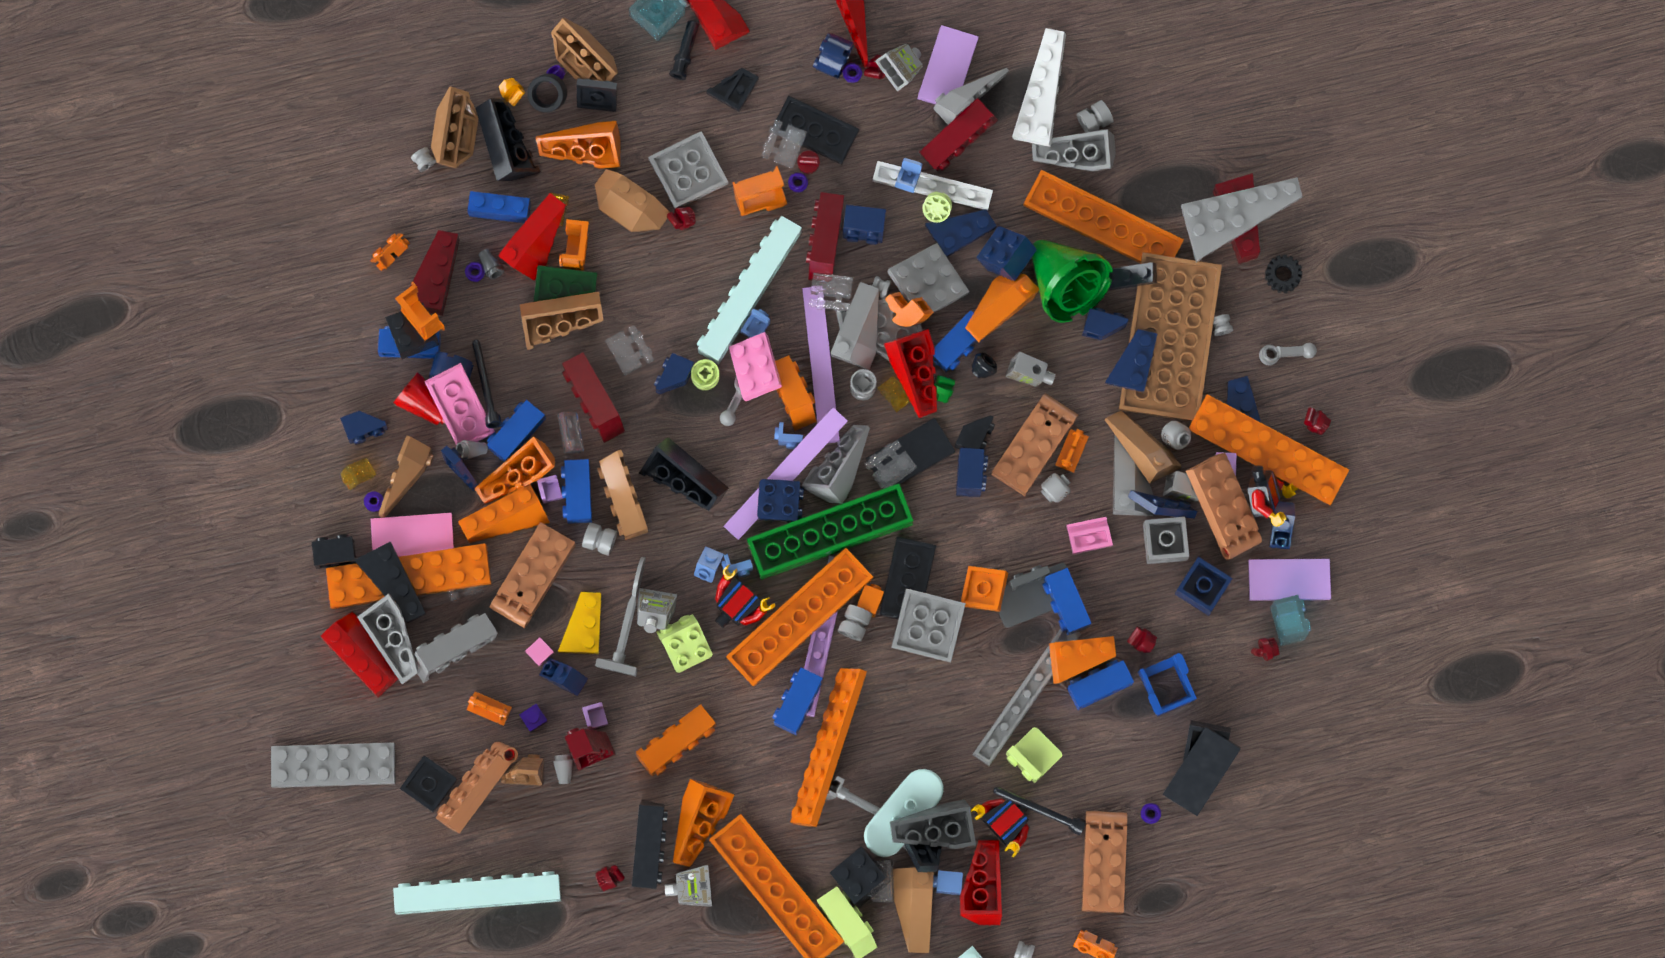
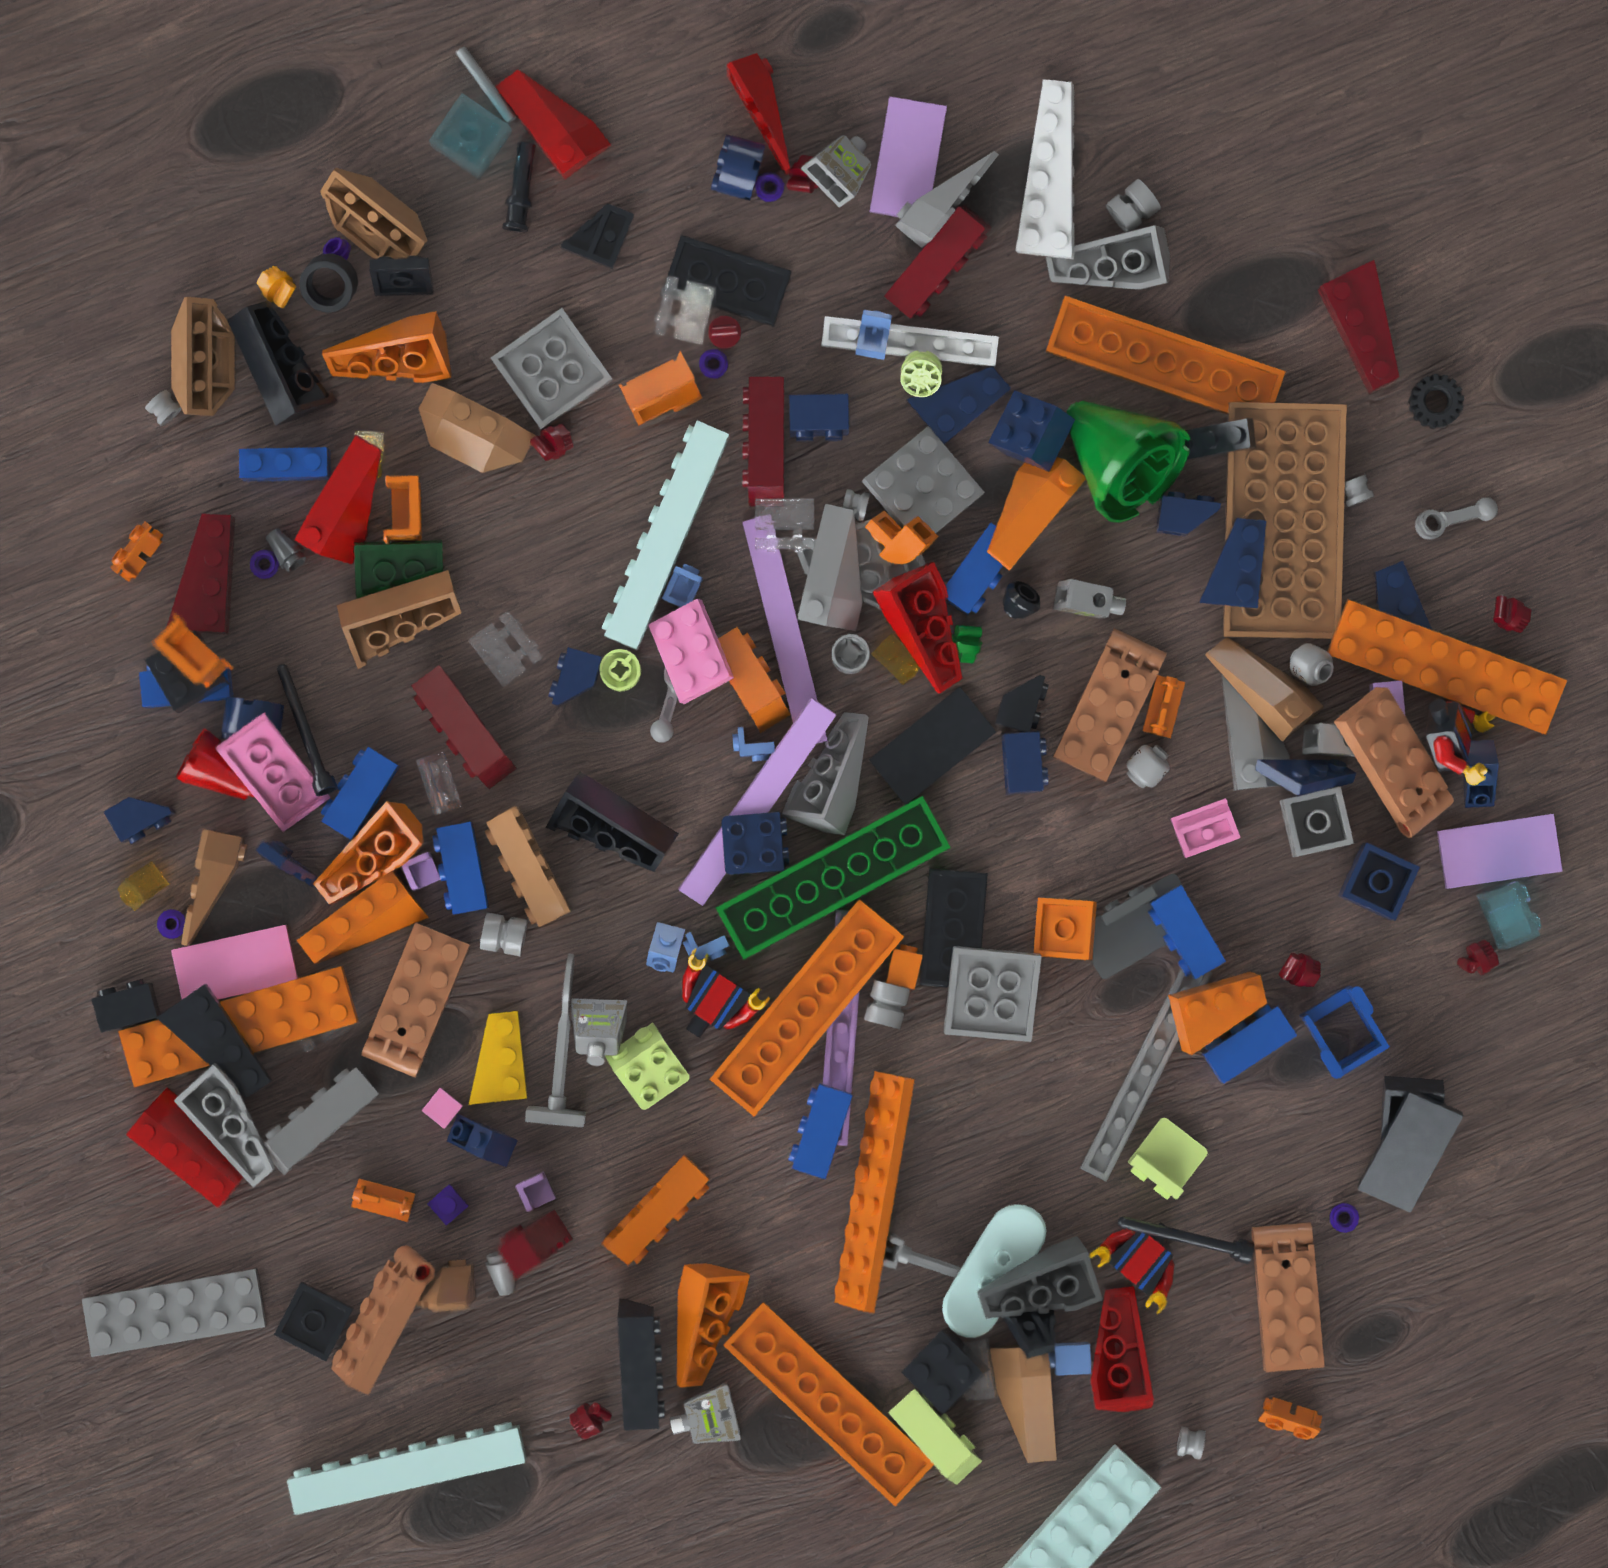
camera: 10 degrees left, 10 degrees up
(471, 449) = (296, 830): light grey cone -> none
(895, 469) = (912, 774): clear plate -> none
(1227, 216) = (1343, 334): light grey wing -> none

